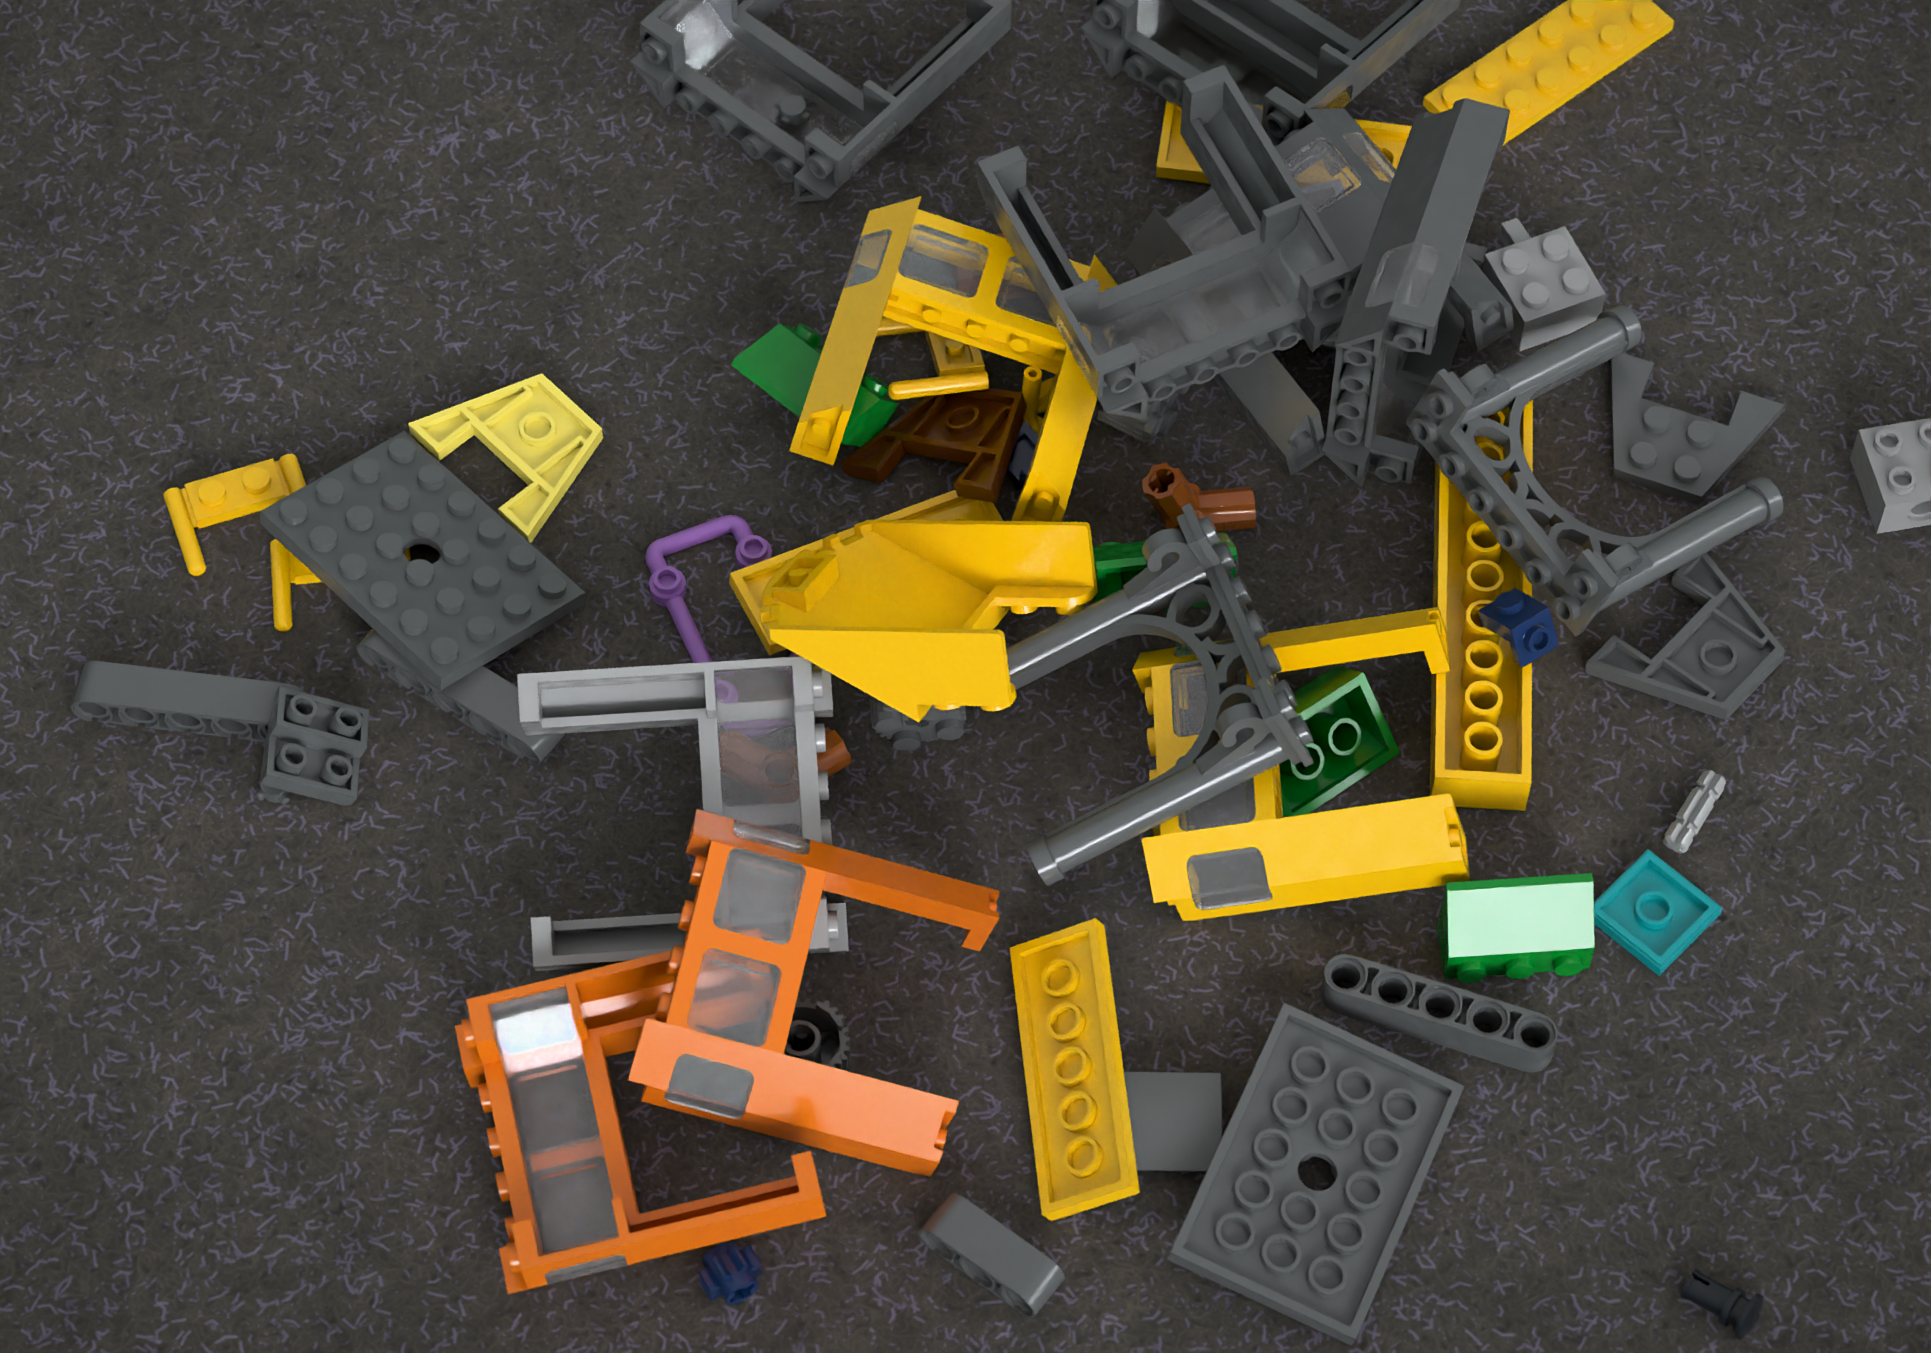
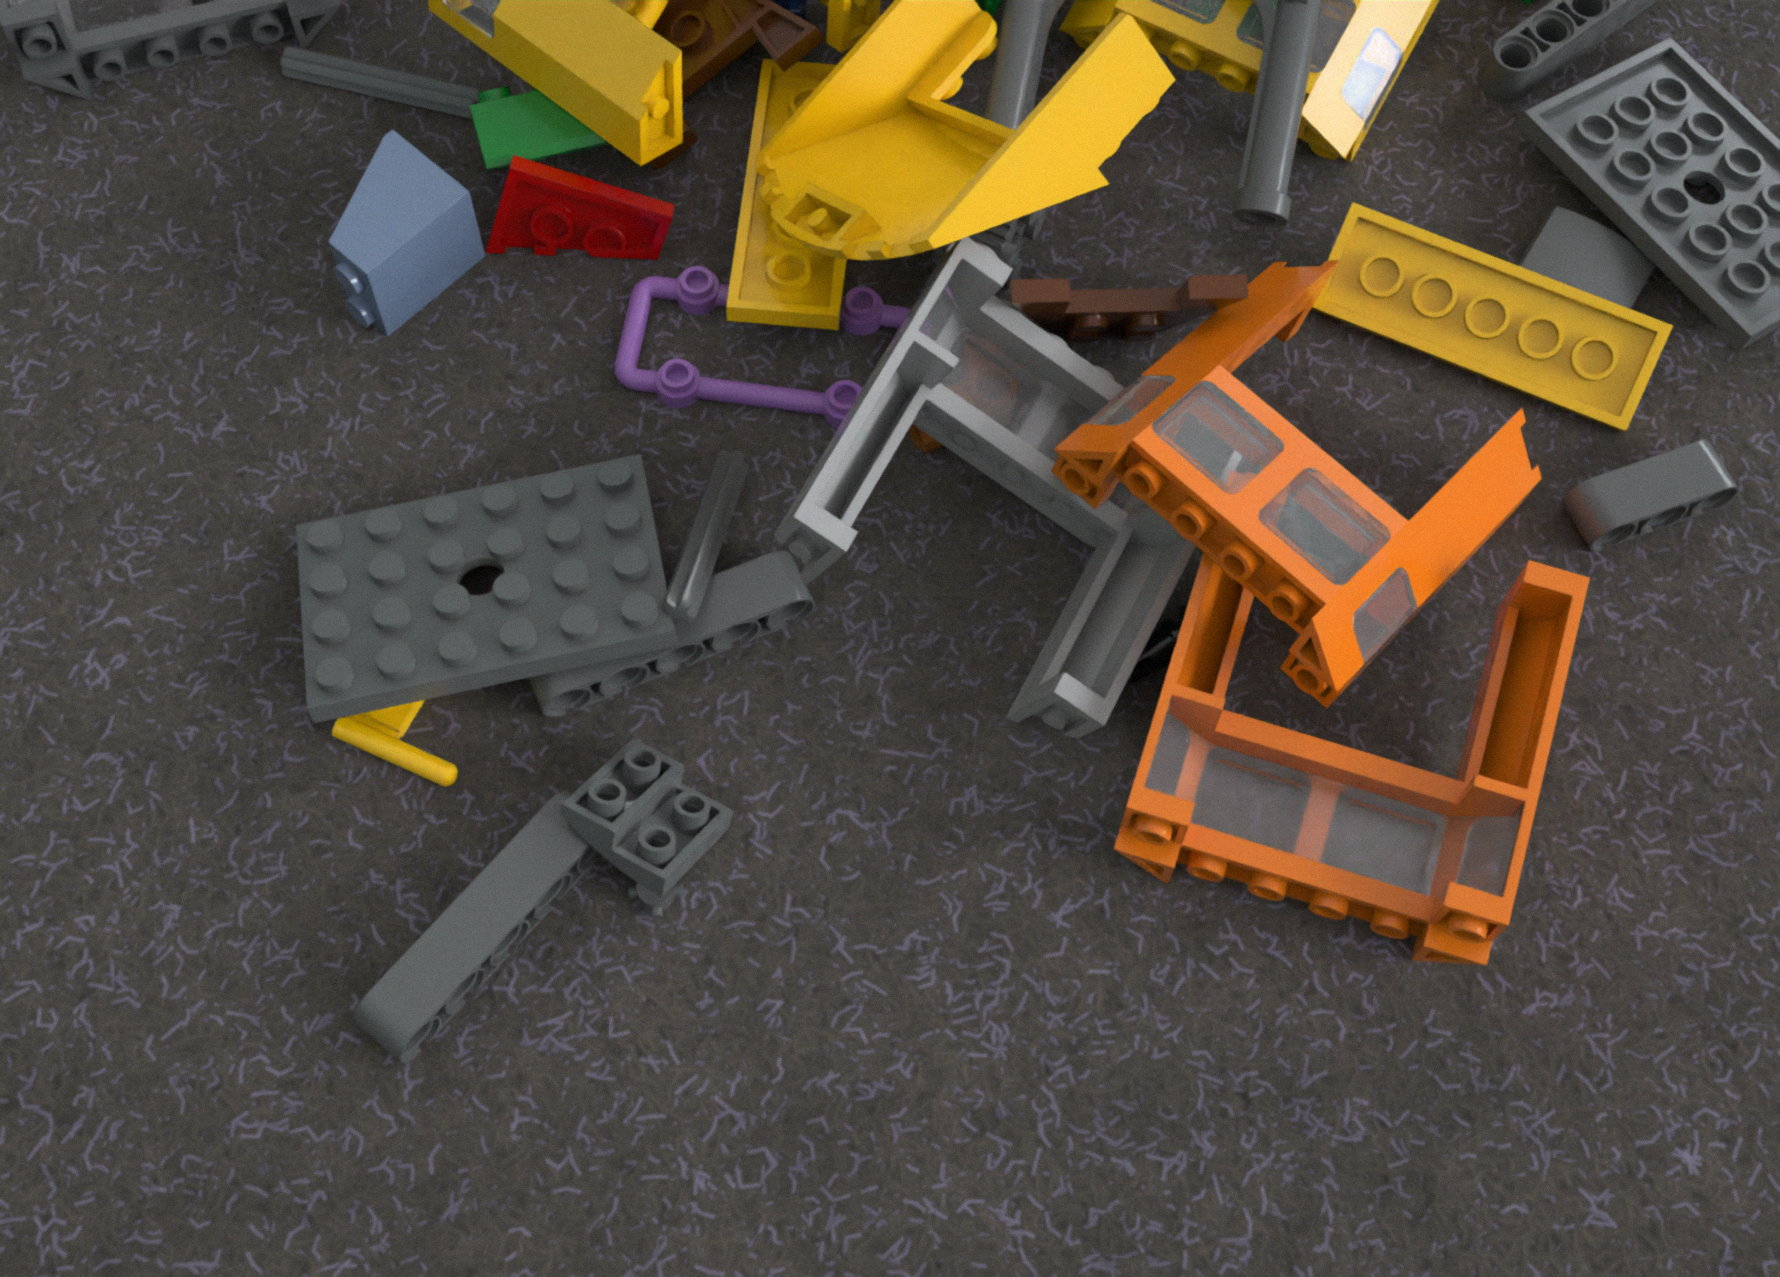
camera: 60 degrees left, 5 degrees up
(226, 498) = (237, 746): yellow plate -> none
(505, 667) = (705, 537): none -> dark grey axle
(529, 430) = (396, 407): light yellow wing -> none
(653, 350) = (402, 236): none -> sand blue slope
(730, 1272) = (1570, 741): dark blue gear -> none
(747, 433) = (564, 210): none -> red wing
(795, 262) = (378, 81): none -> dark grey axle
(878, 797) = (1130, 311): none -> reddish brown wing

